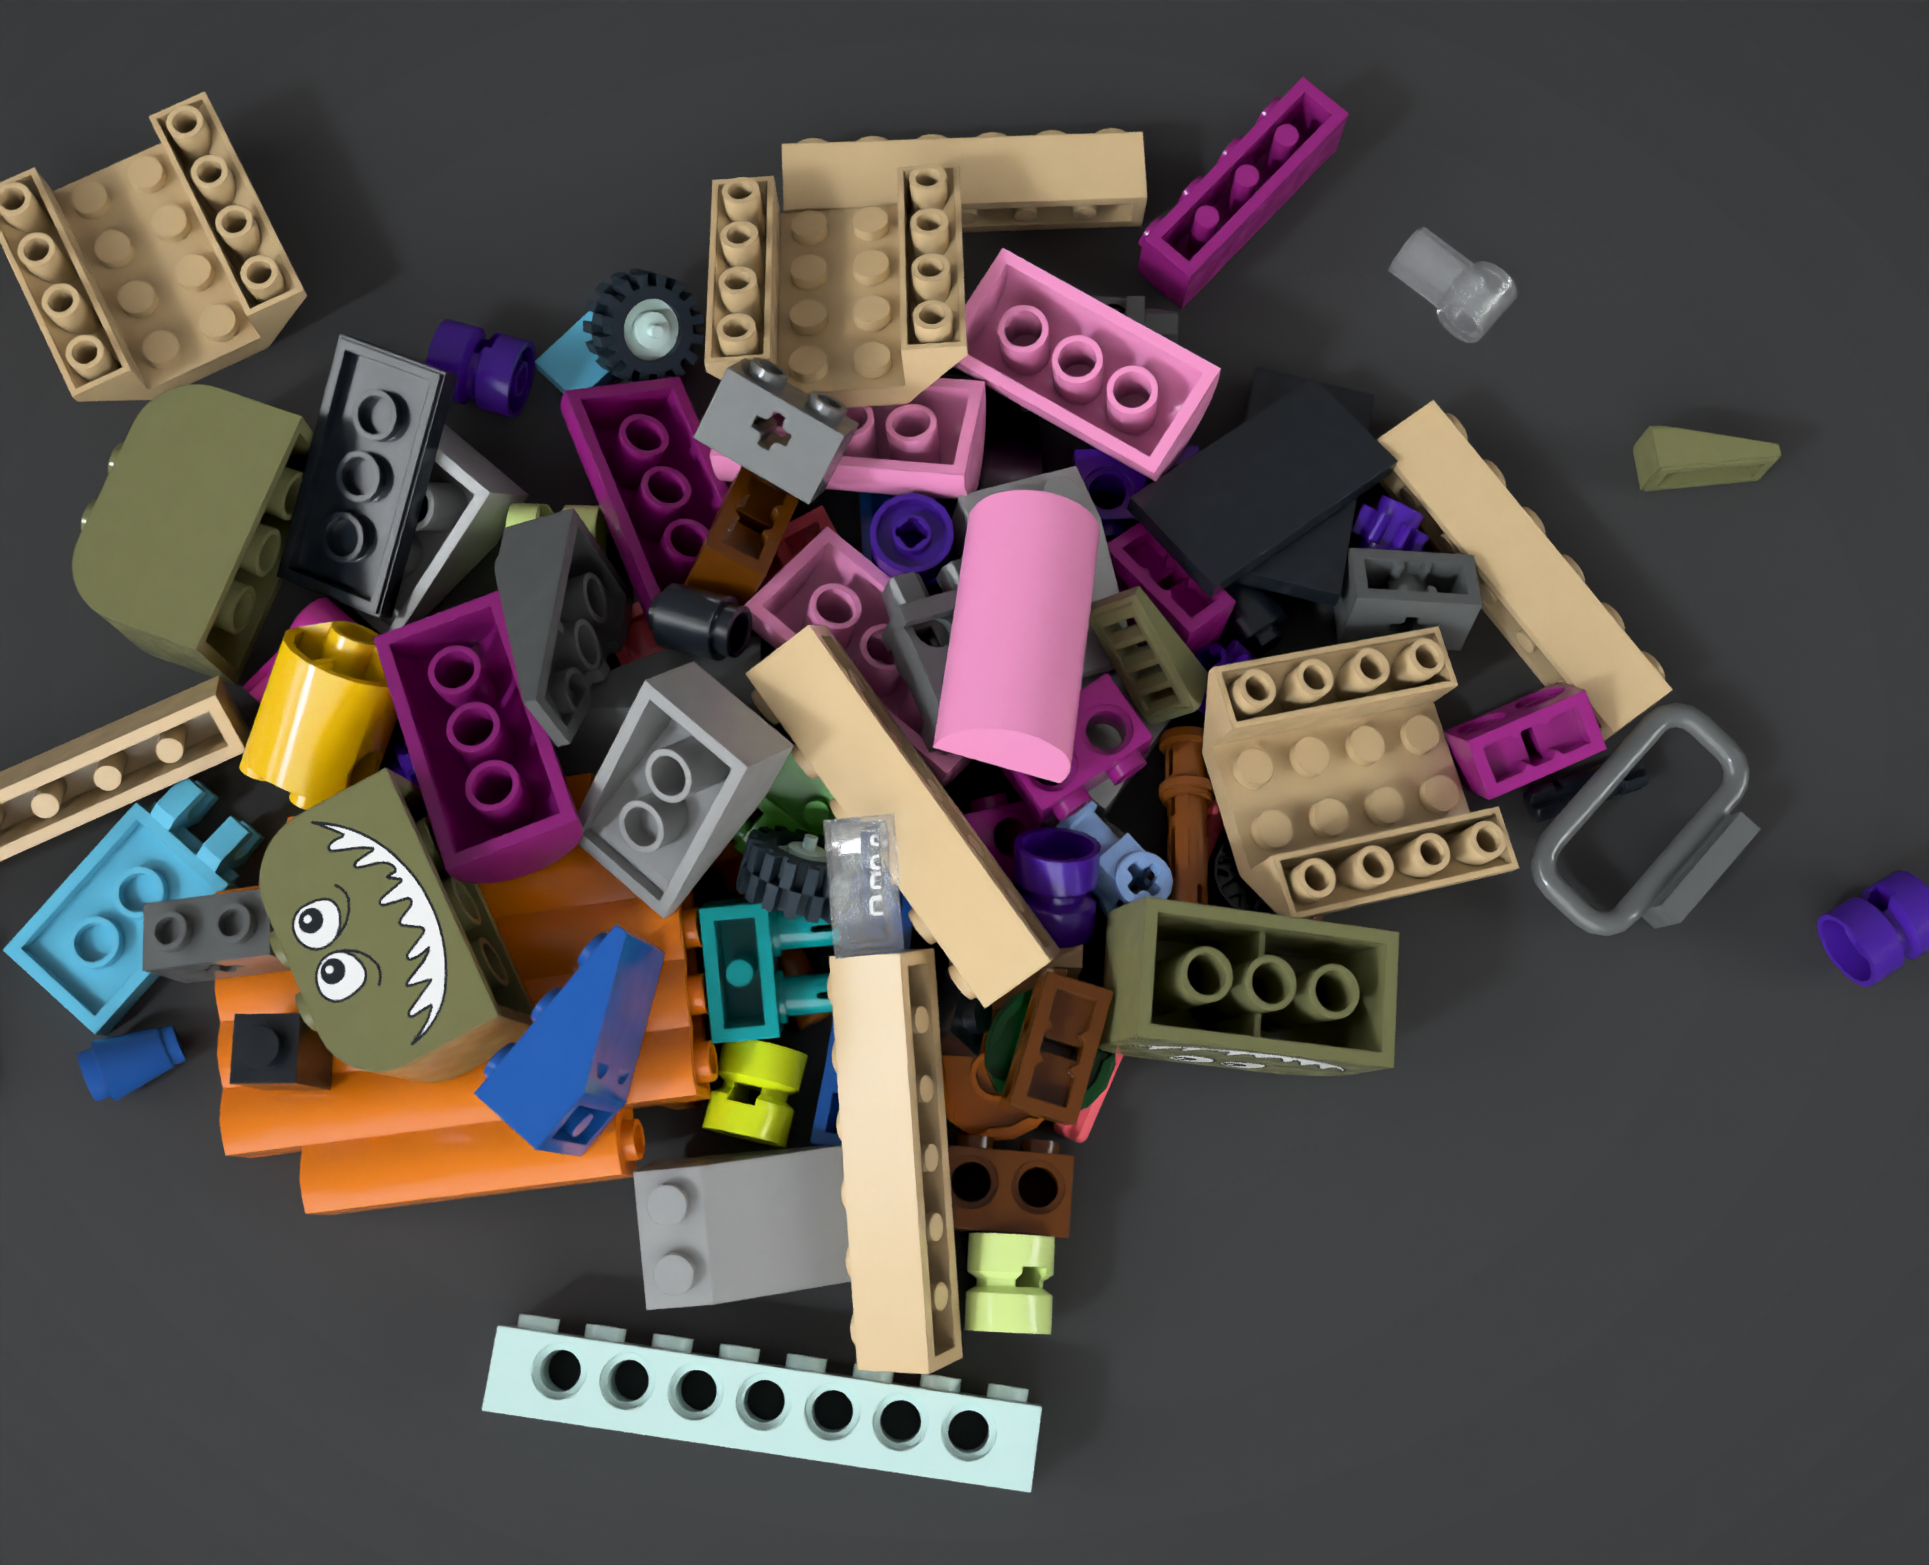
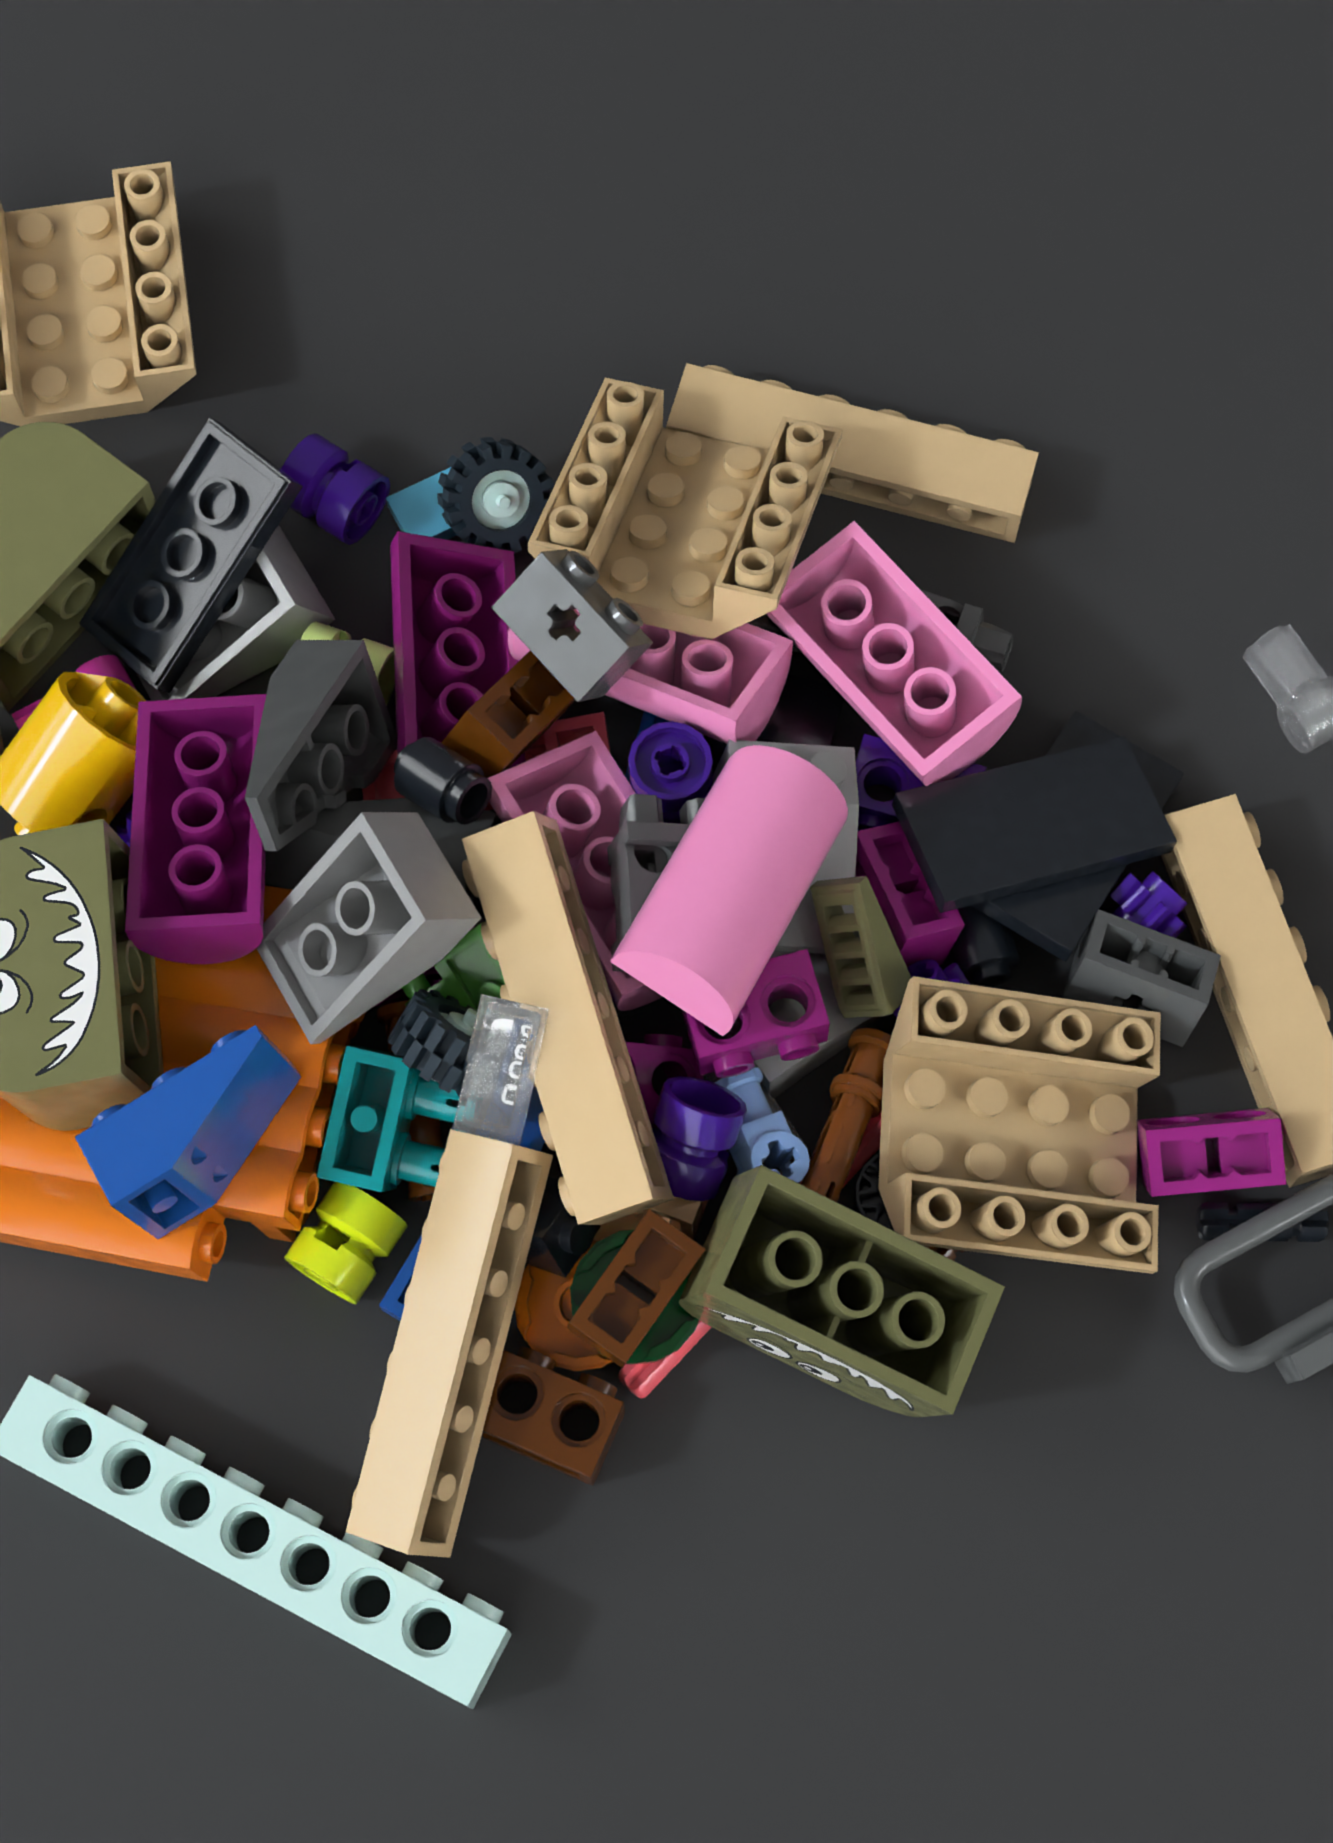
camera: 25 degrees right, 5 degrees down
(741, 1225) = (284, 1360): light grey slope -> none
(1009, 1283) = (521, 1504): yellowish green wheel -> none
(1240, 192) = (1117, 538): magenta brick -> none

